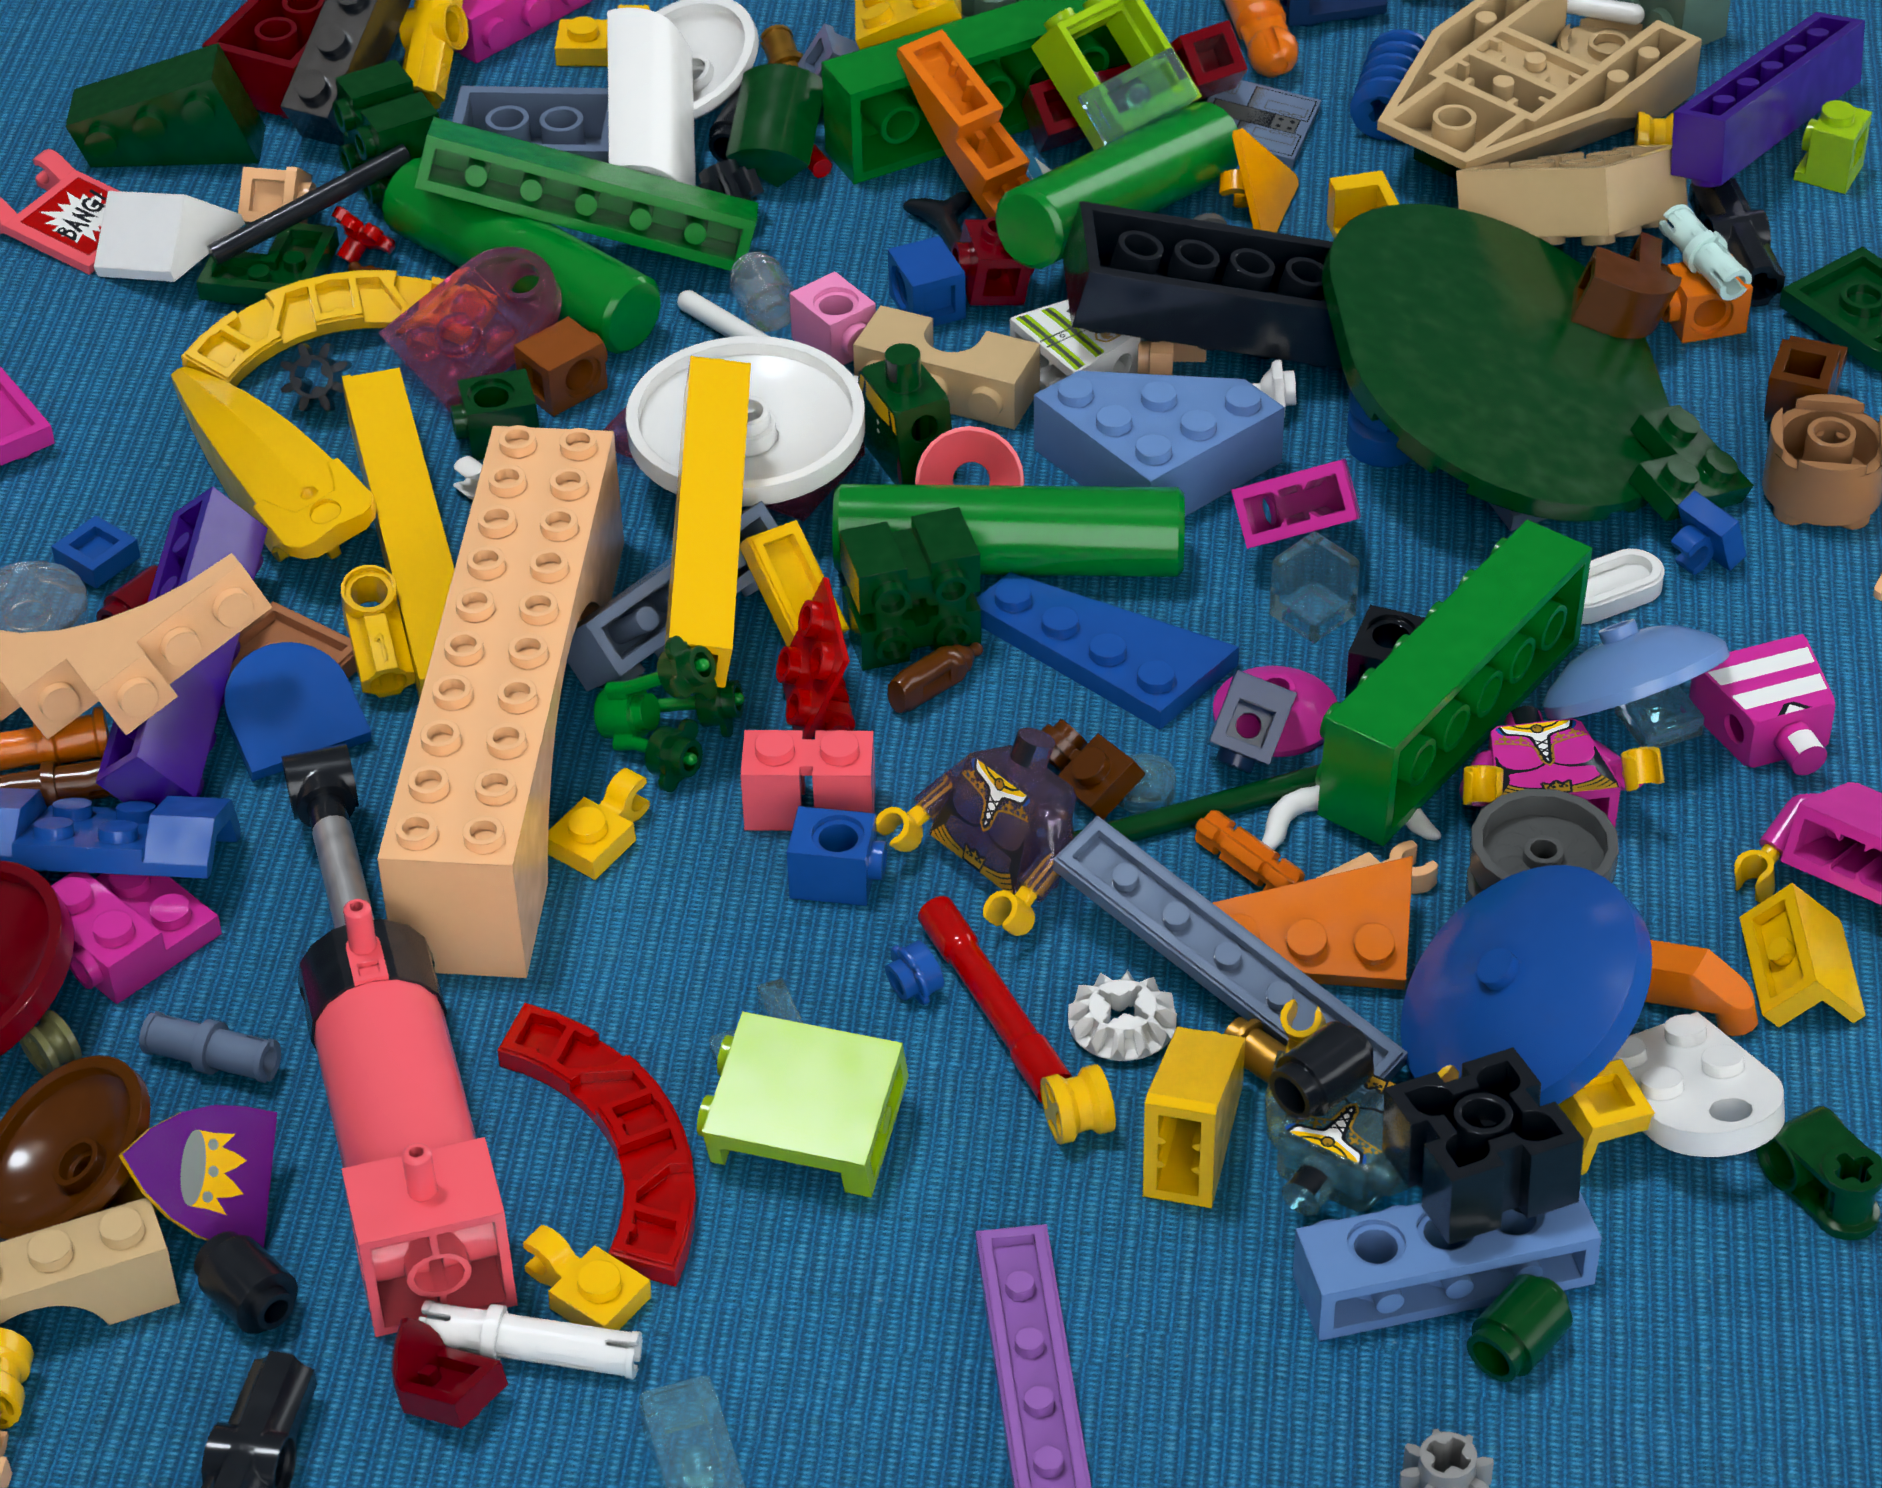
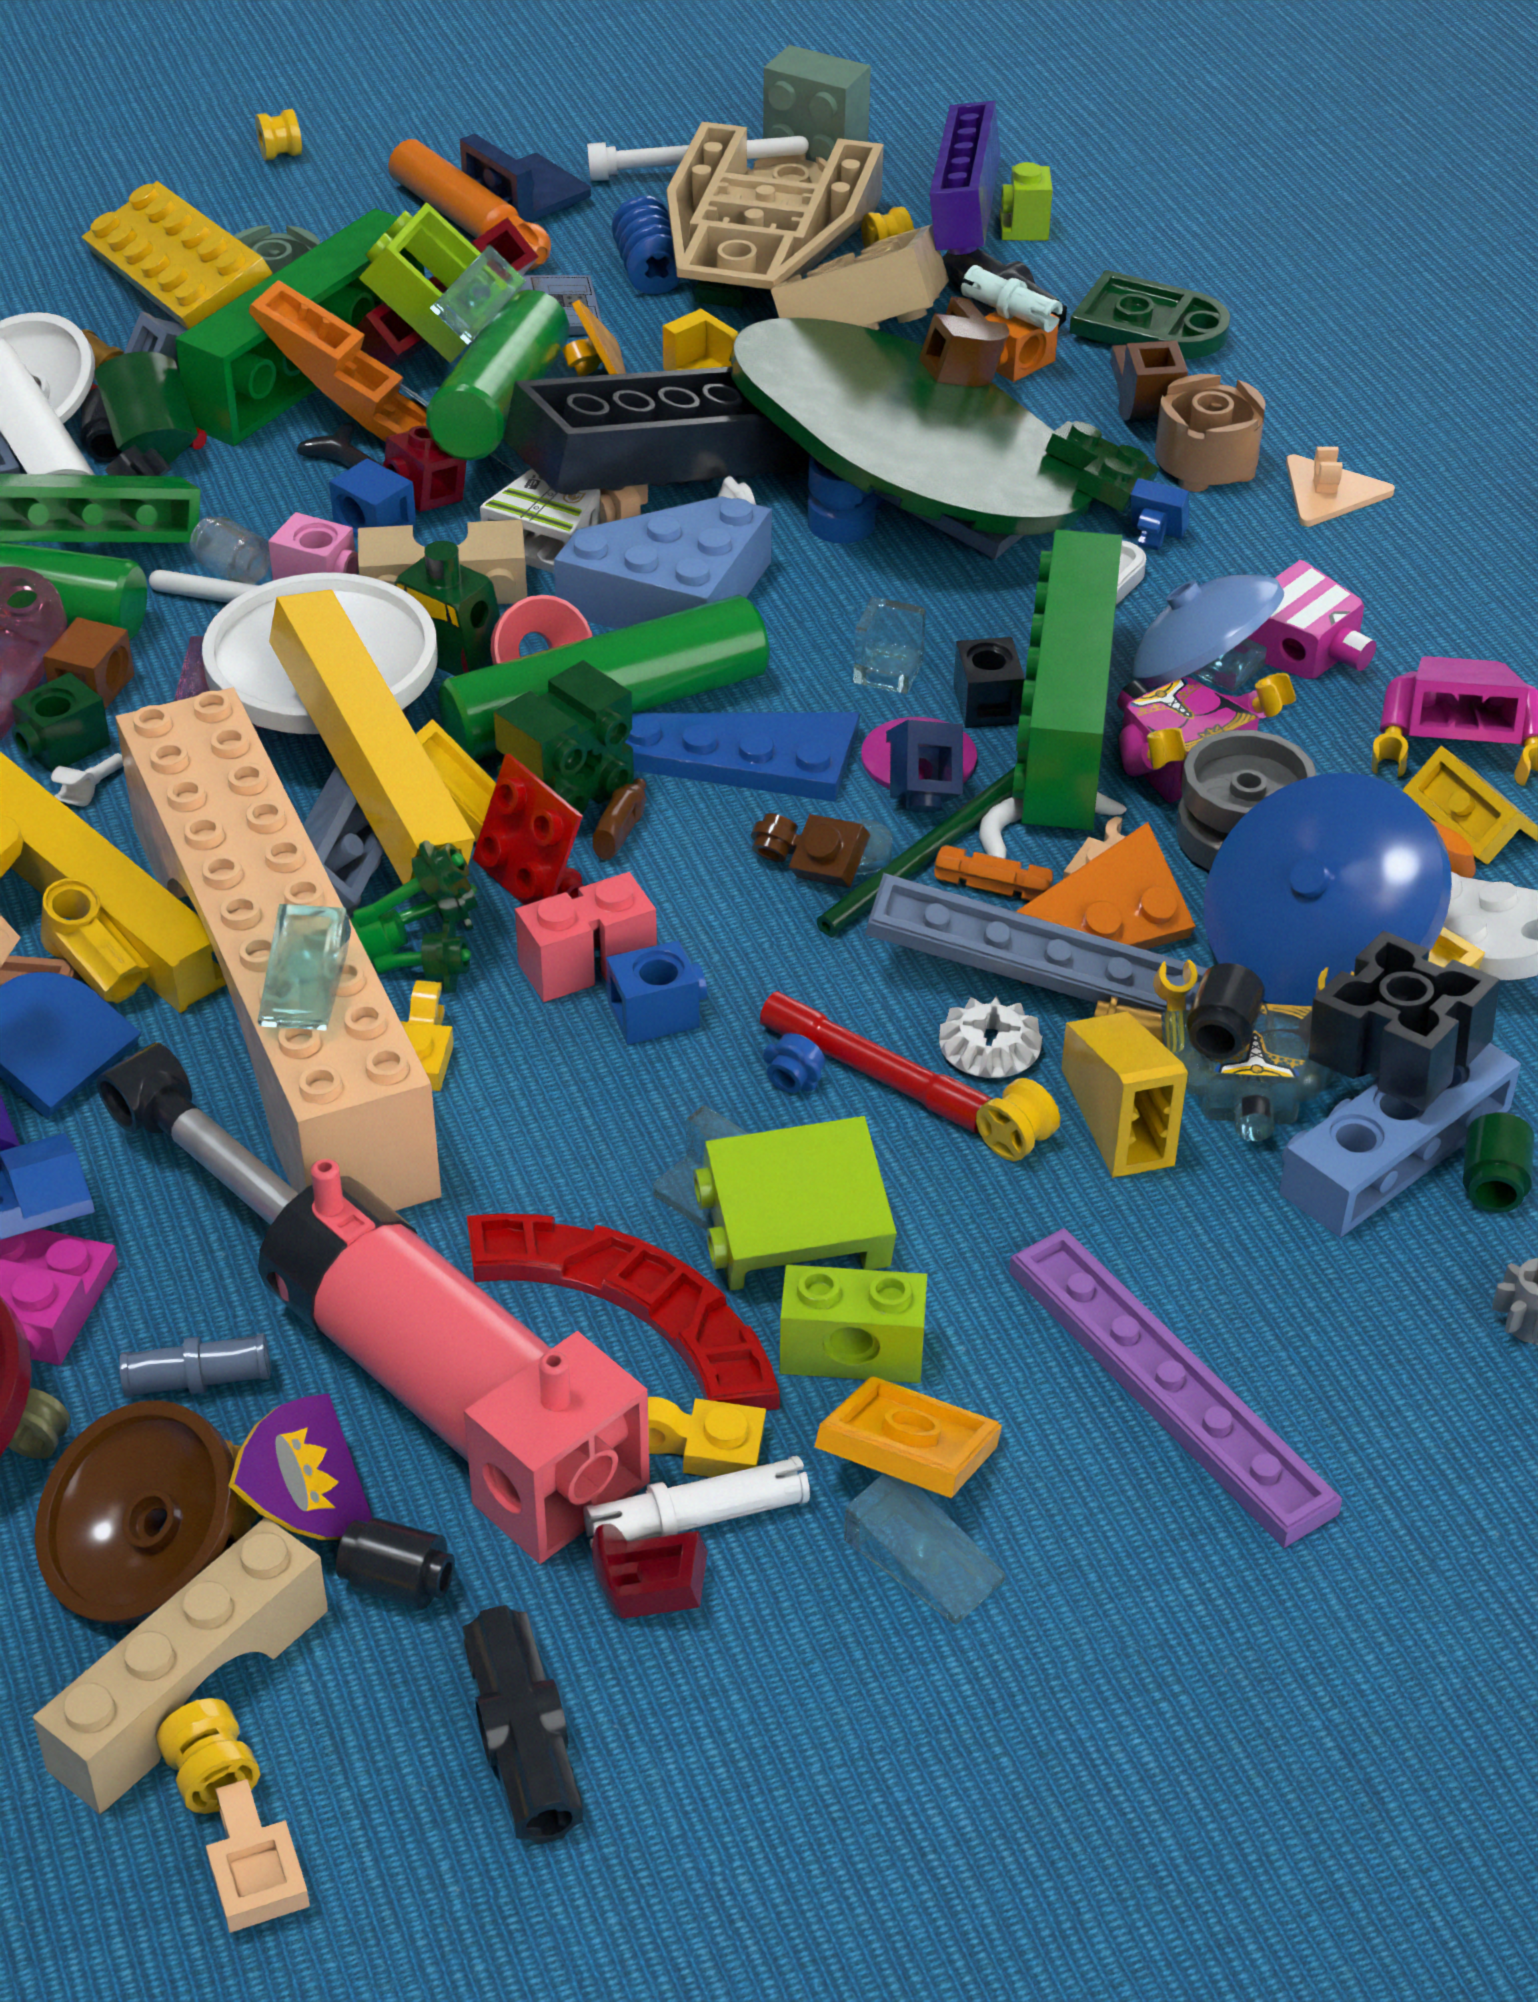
camera: 30 degrees left, 0 degrees up
(469, 718) = (304, 966): none -> clear light blue slope
(747, 1356) = (909, 1436): none -> light orange tile
(776, 1234) = (852, 1323): none -> lime brick
(1002, 818) = (789, 908): clear purple torso -> none
(1297, 503) = (844, 575): dark pink torso -> none

